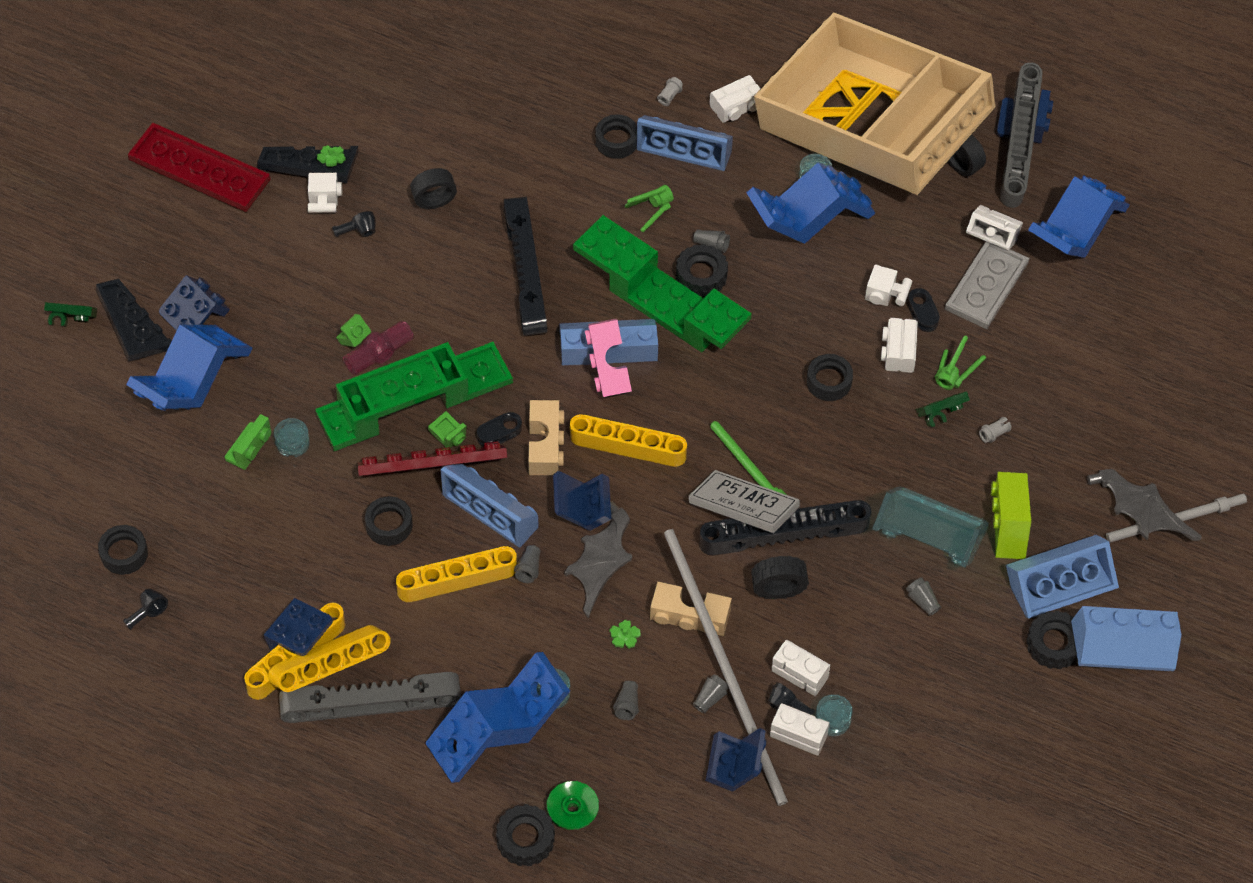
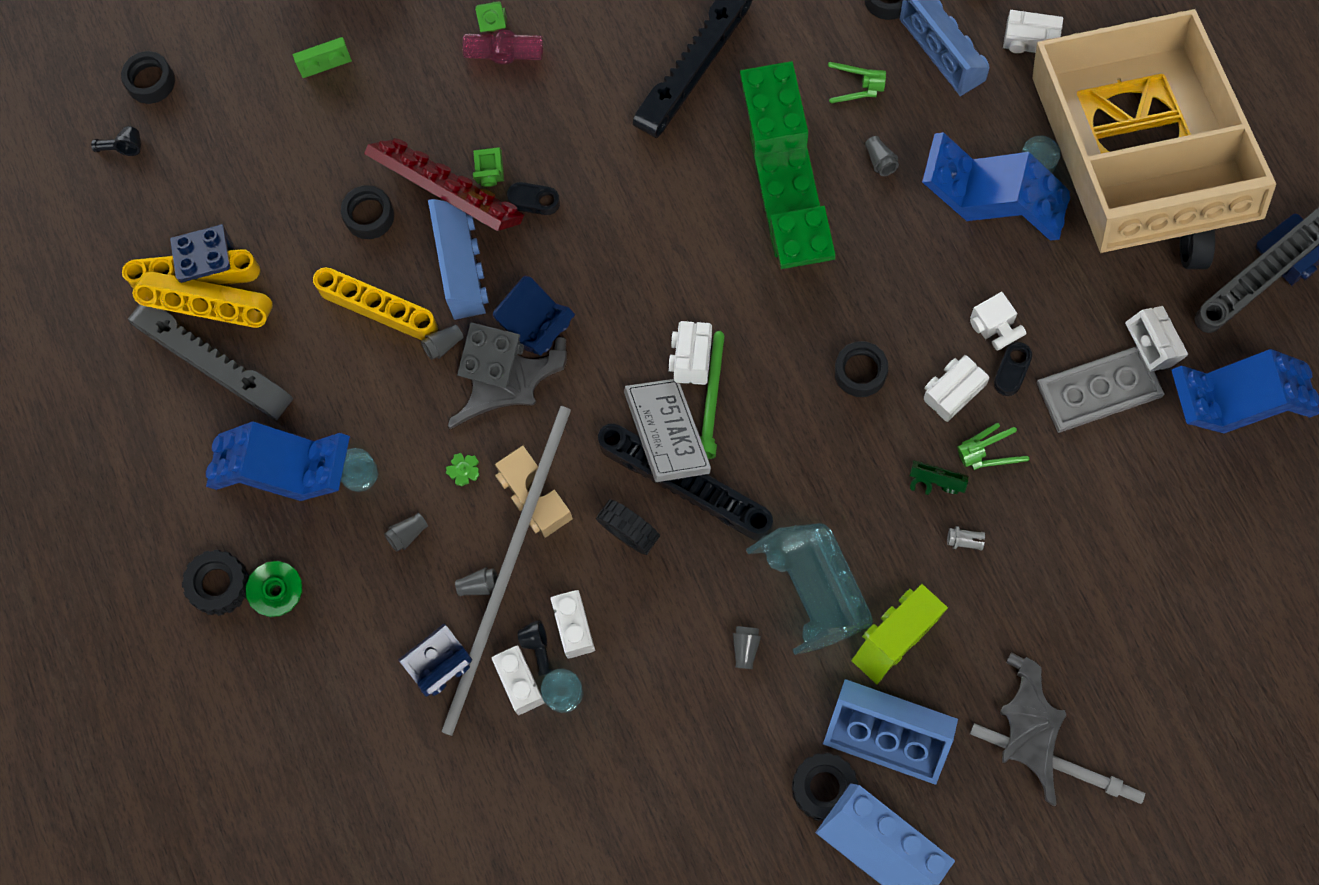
camera: 50 degrees right, 15 degrees up
(292, 438) = (361, 78): clear light blue wheel -> none
(408, 383) = (492, 101): green bracket -> none
(545, 454) = (547, 252): tan arch -> none
(573, 546) = (489, 355): none -> dark grey hinge
(602, 337) = (662, 221): bright pink arch -> none
(619, 432) = (625, 280): yellow beam -> none
(637, 337) = (699, 184): medium blue slope -> none
(702, 254) = (844, 198): black tyre -> none
(711, 444) = (692, 352): none -> white brick

